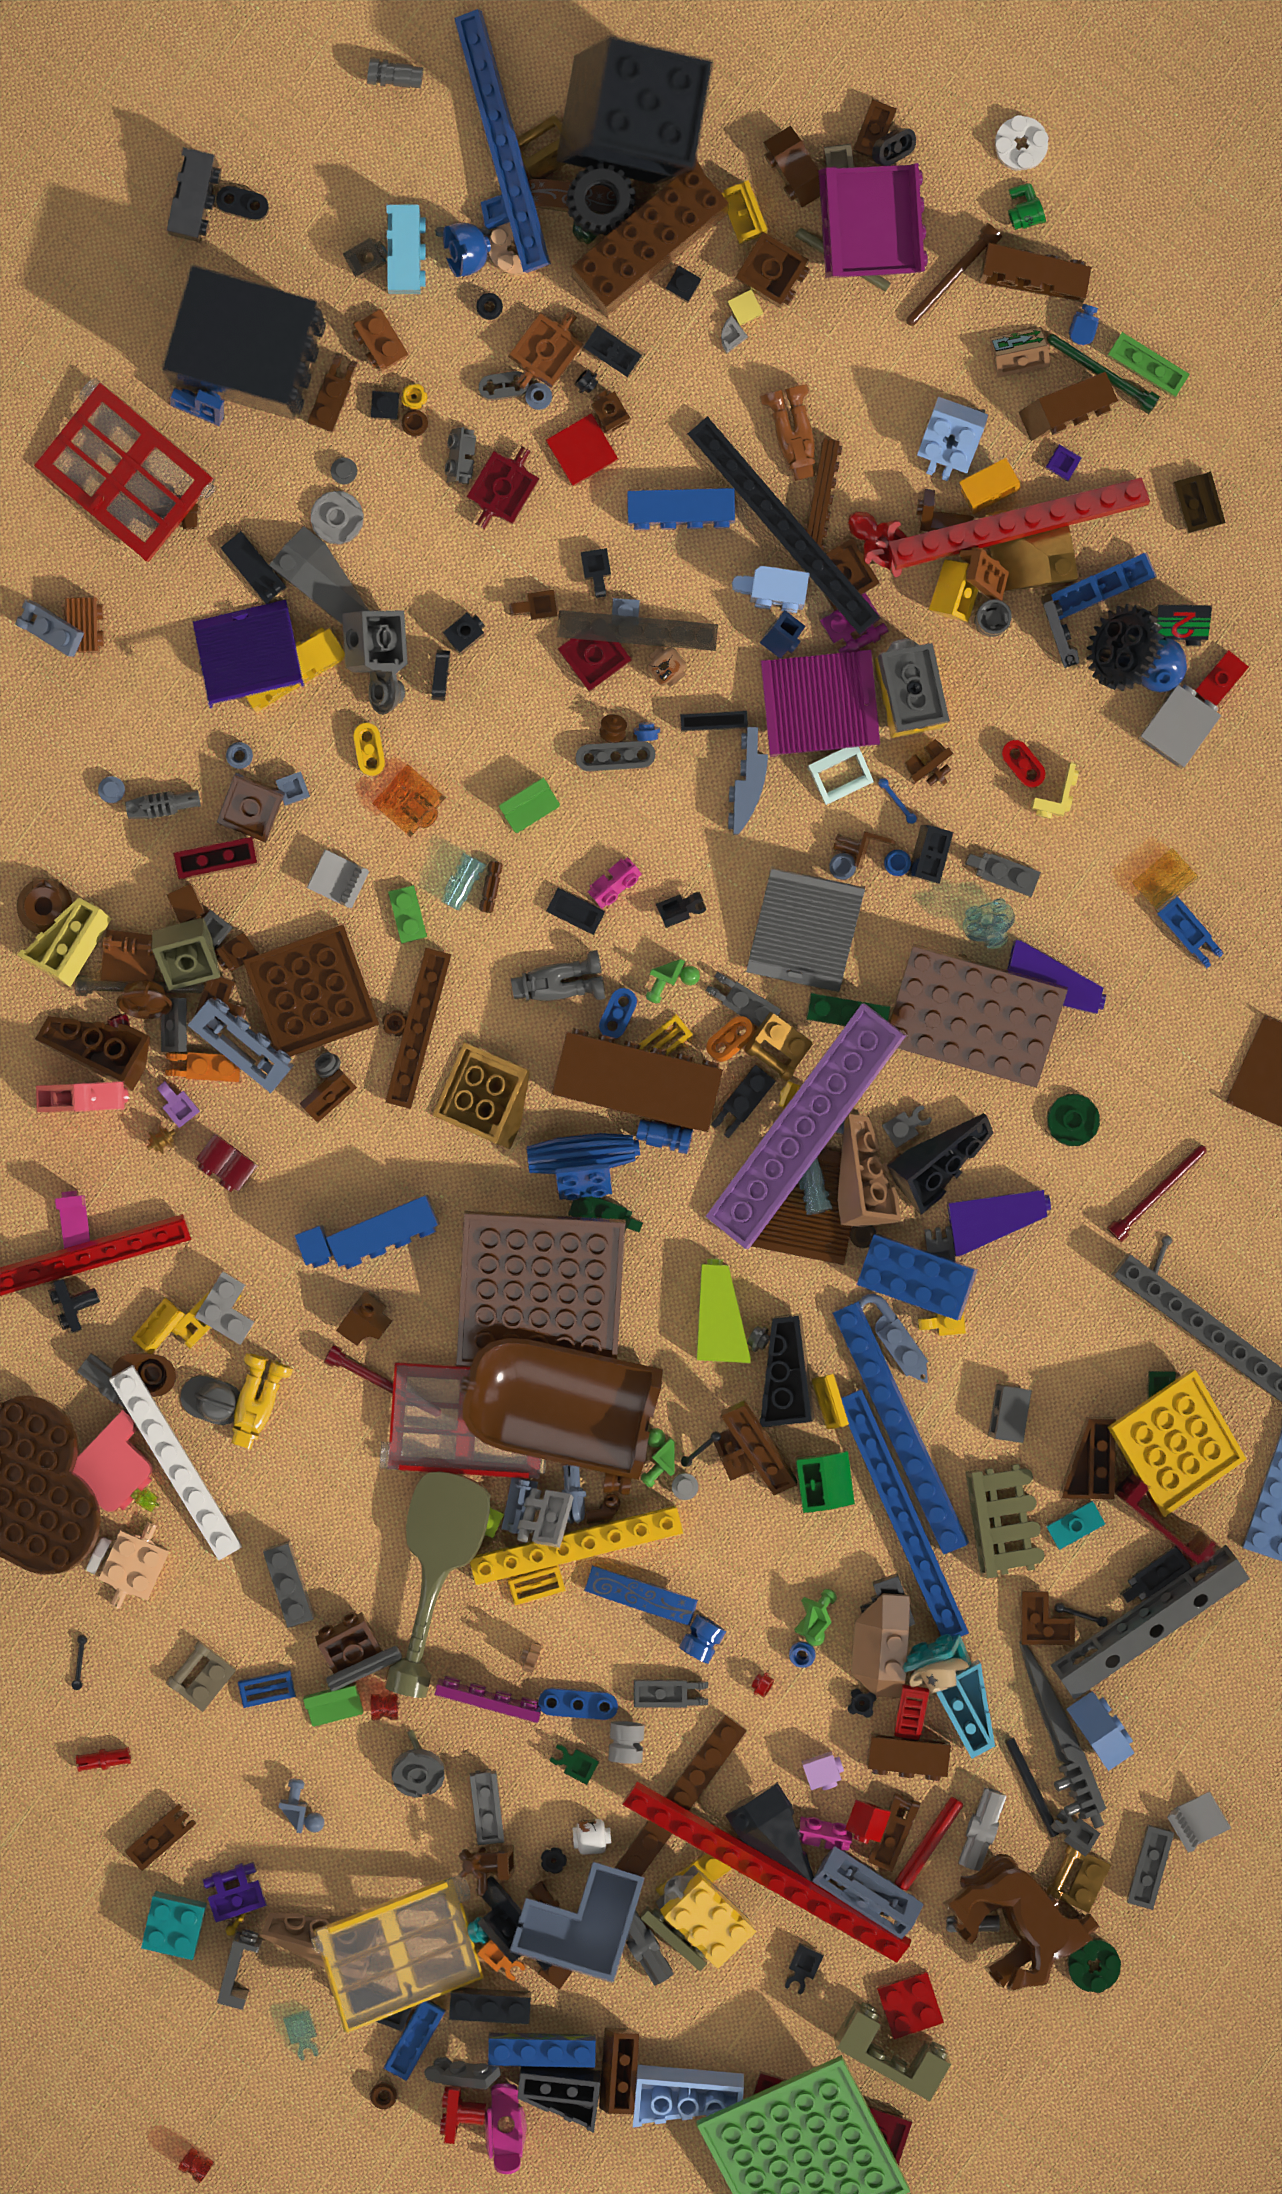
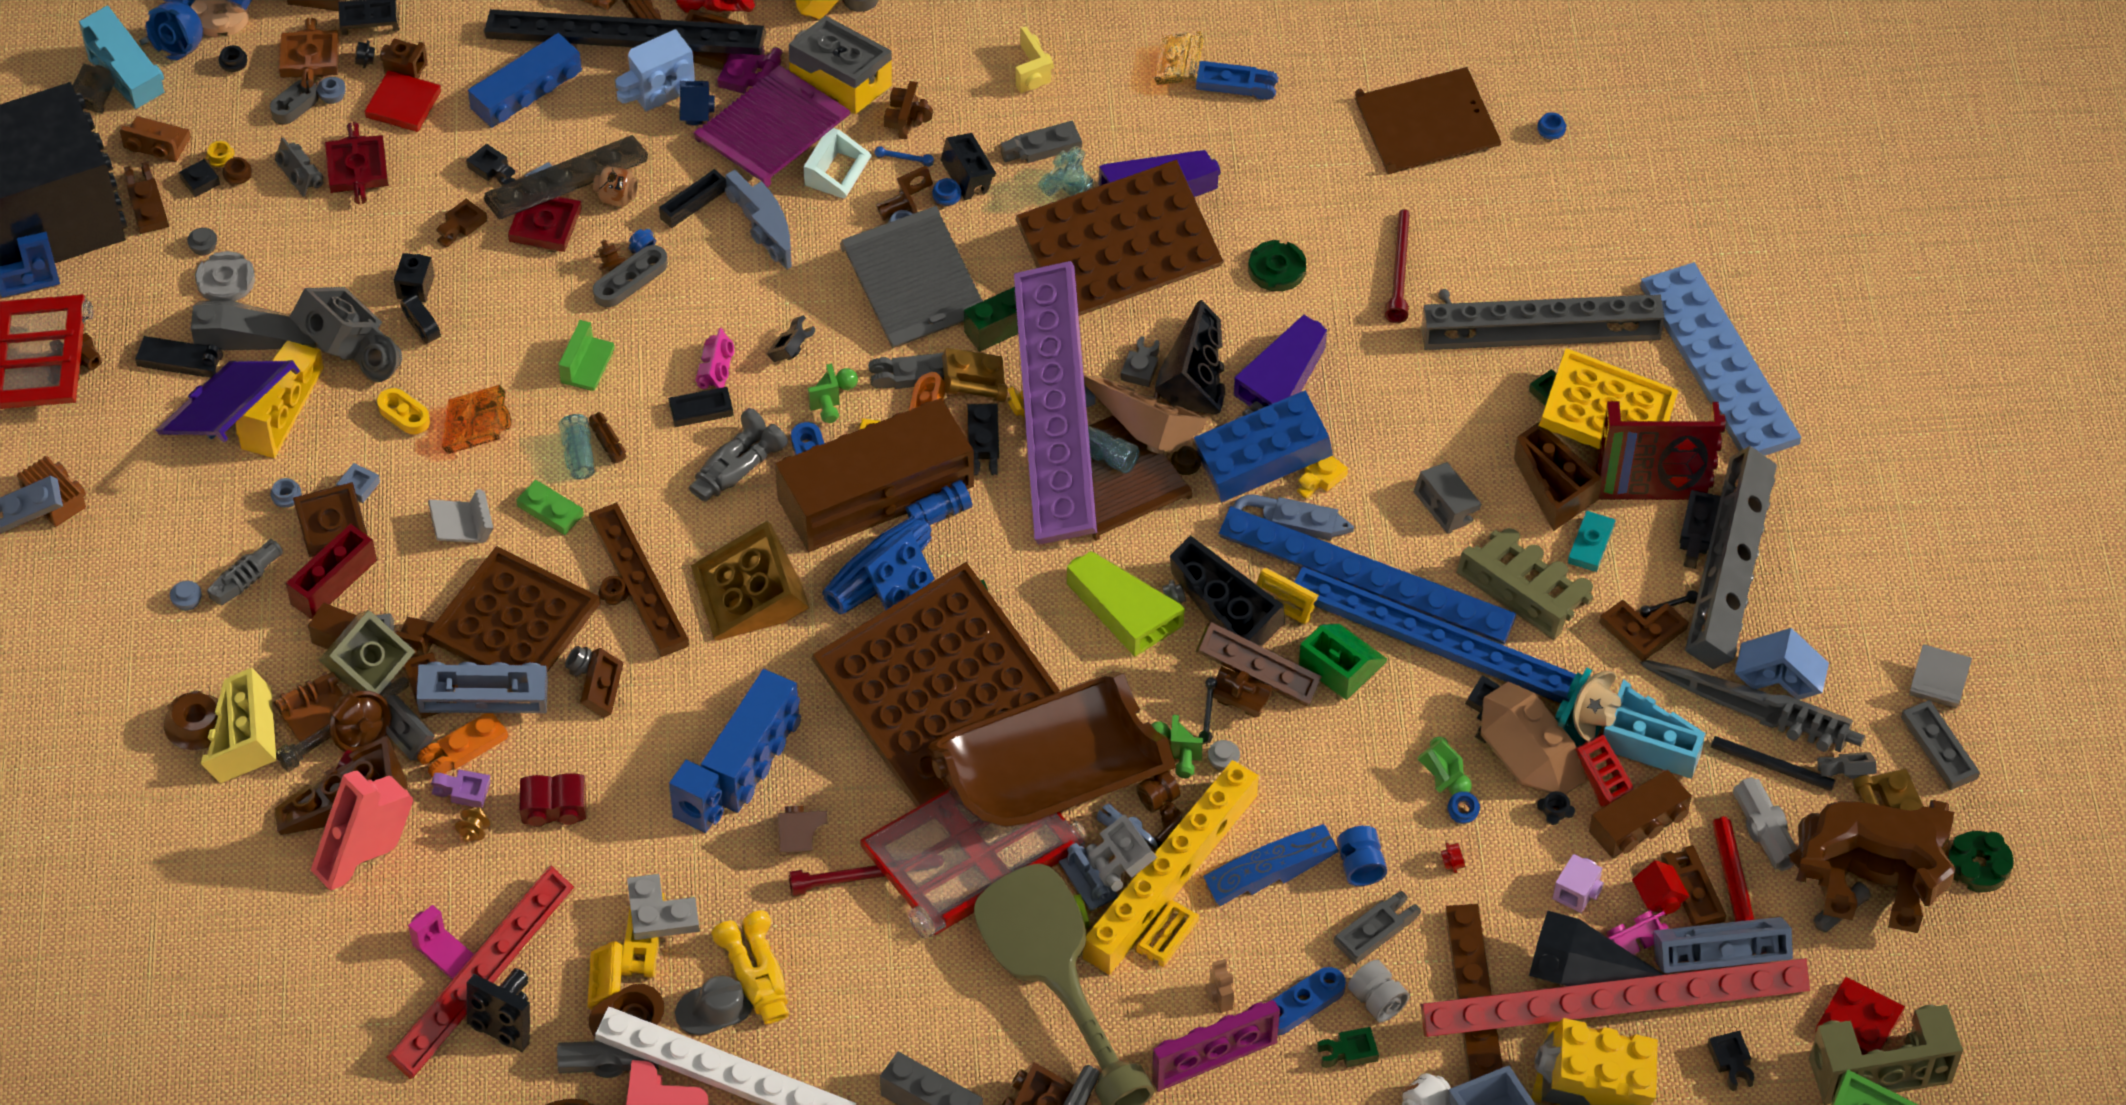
camera: 40 degrees left, 35 degrees down
(1025, 762) = (983, 62): red plate -> none

